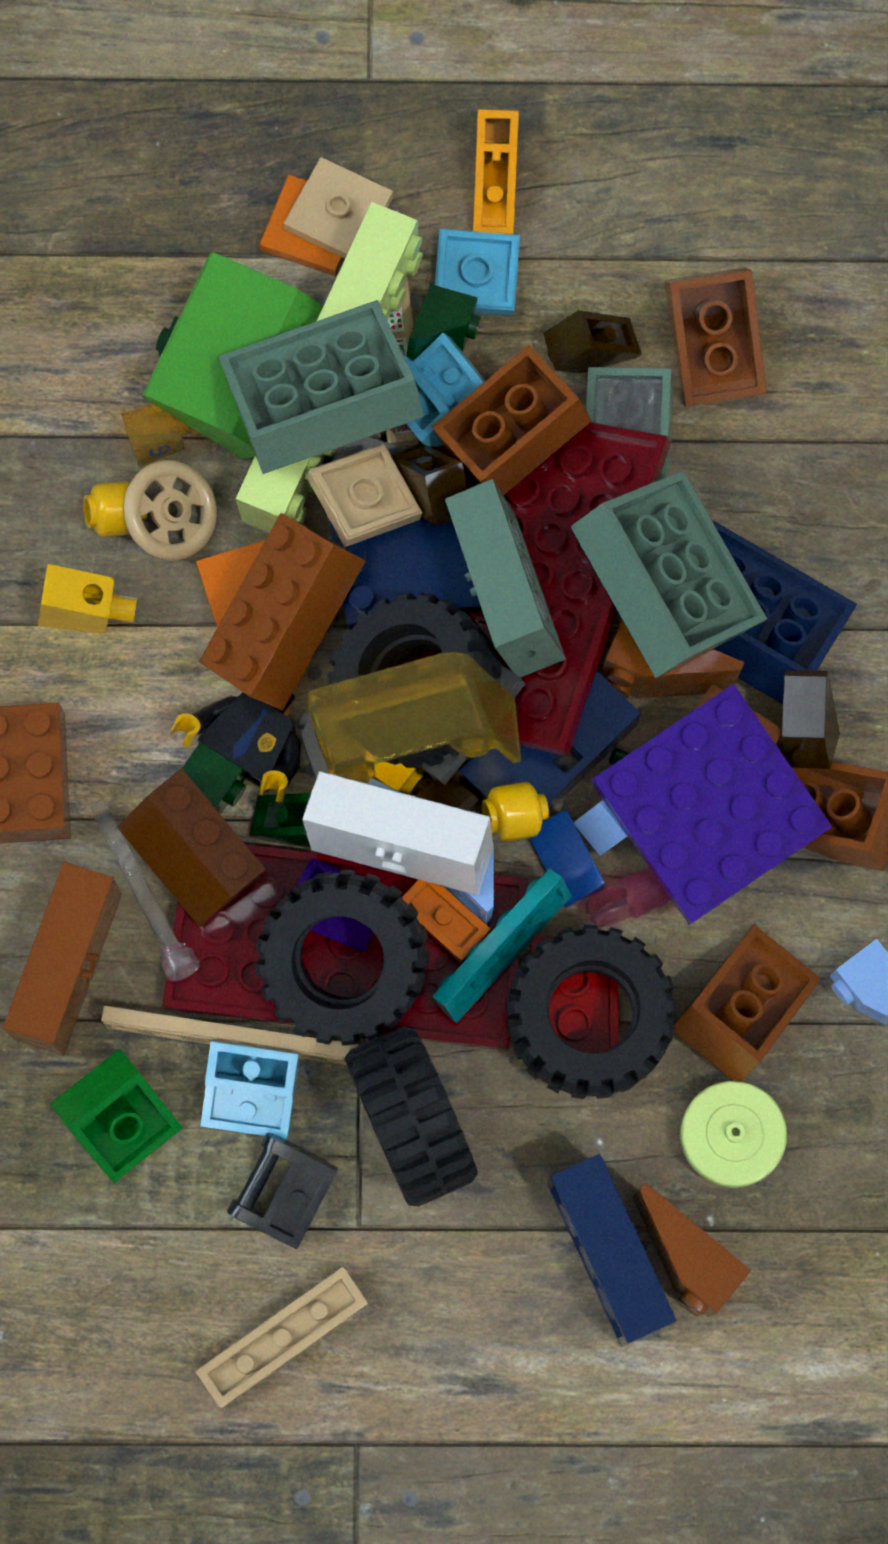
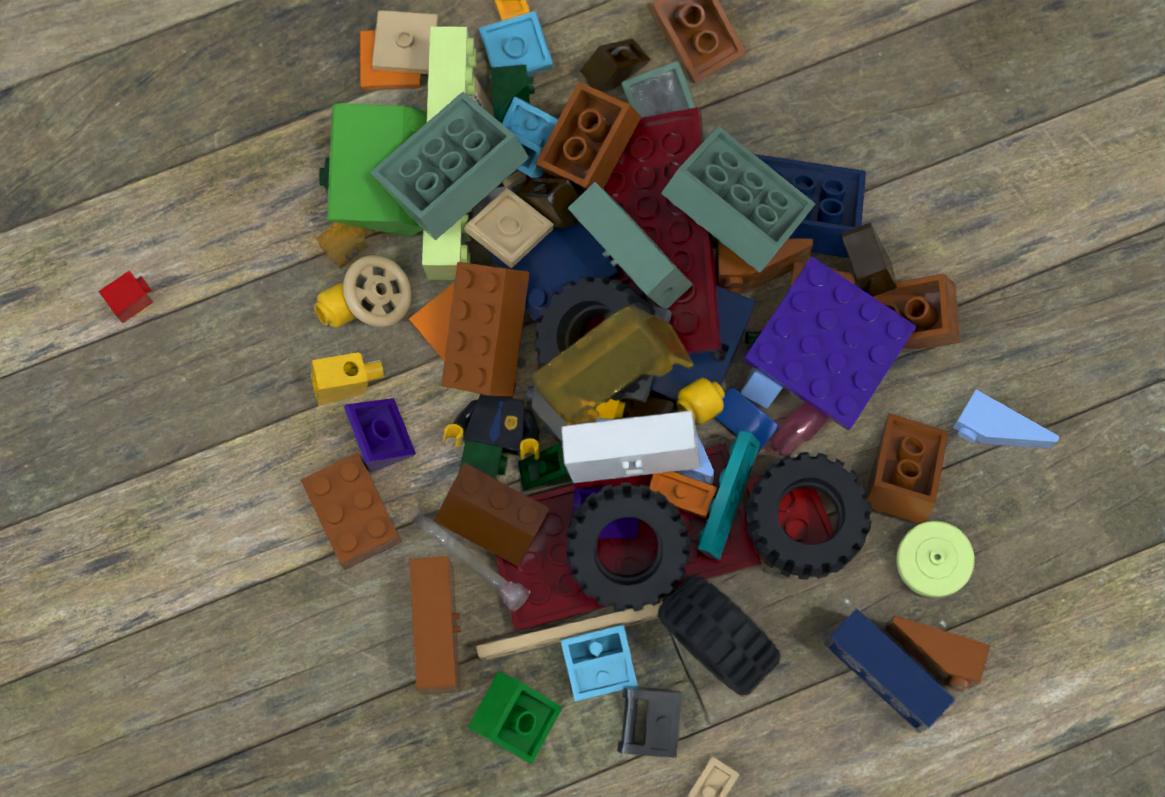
camera: 15 degrees left, 0 degrees up
(98, 689) = (380, 432): none -> dark purple slope

